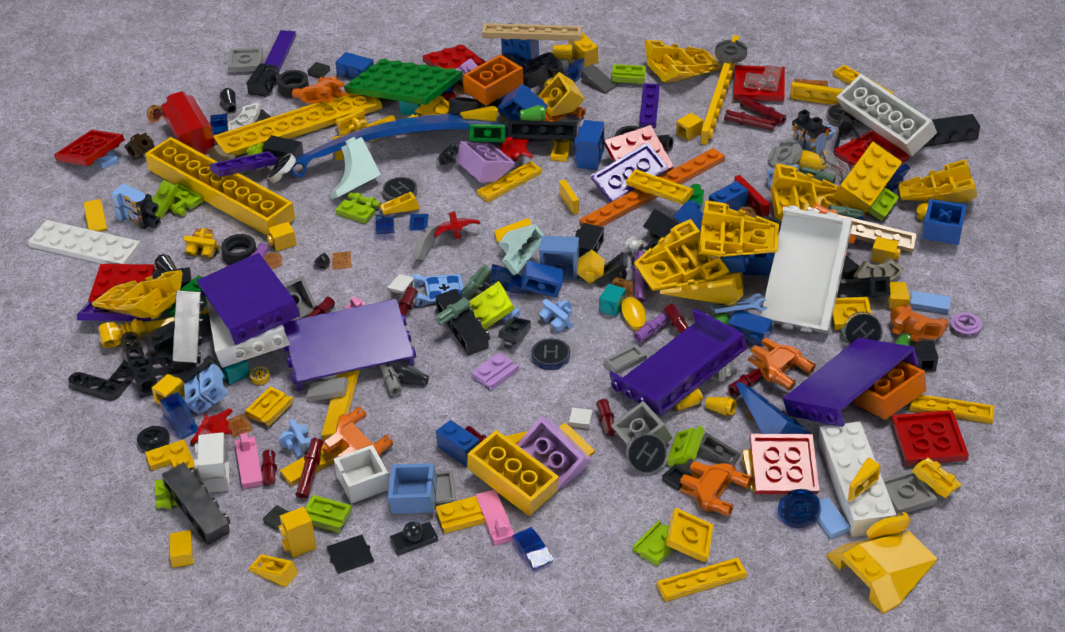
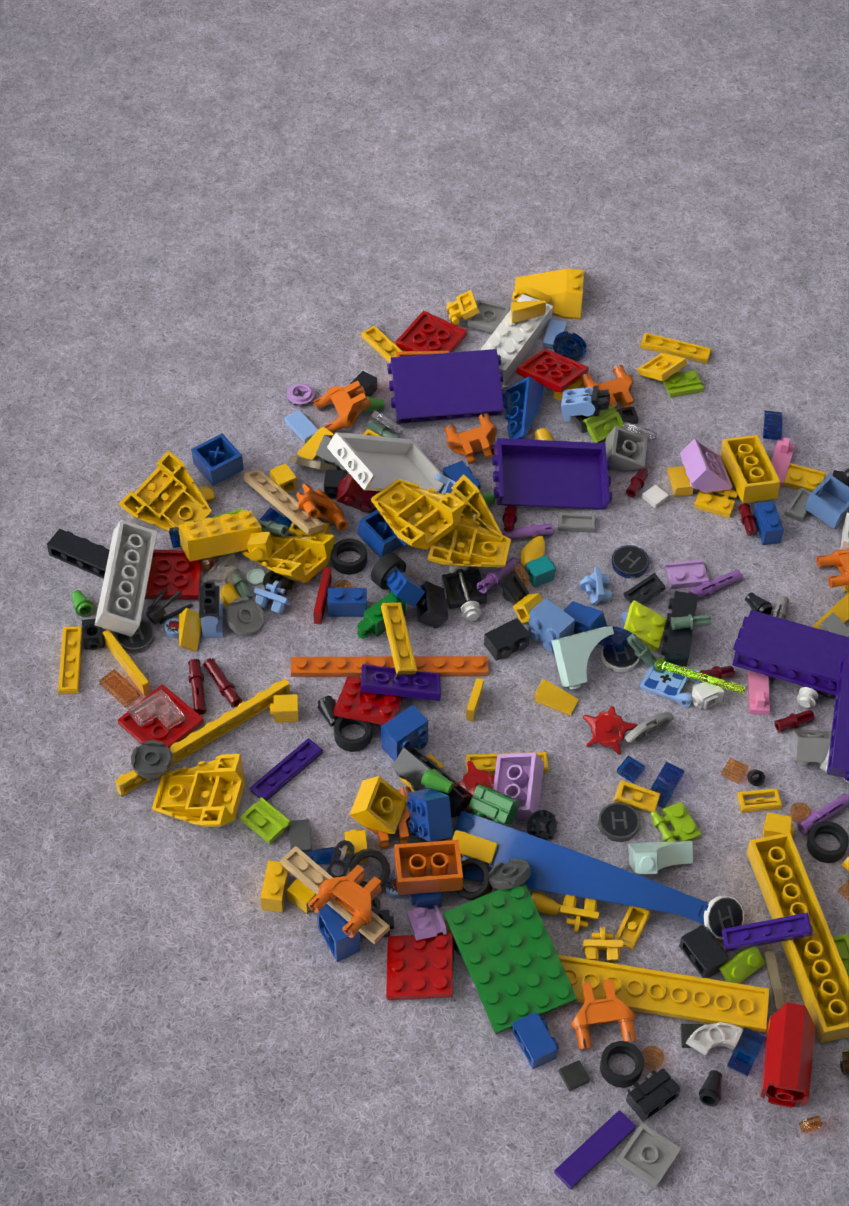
camera: 145 degrees left, 10 degrees up
(277, 98) = (652, 1057): none -> clear orange tile
(310, 254) = (761, 803): none -> yellow tile
(414, 283) = (660, 665): none -> clear neon green bar
(438, 101) = (509, 874): none -> dark grey tile
(466, 367) = (732, 577): none -> medium lavender pin
(516, 23) = (350, 896): none -> orange connector
(716, 437) = (584, 402): none -> light blue hips
(826, 179) = (260, 546): none -> yellow brick

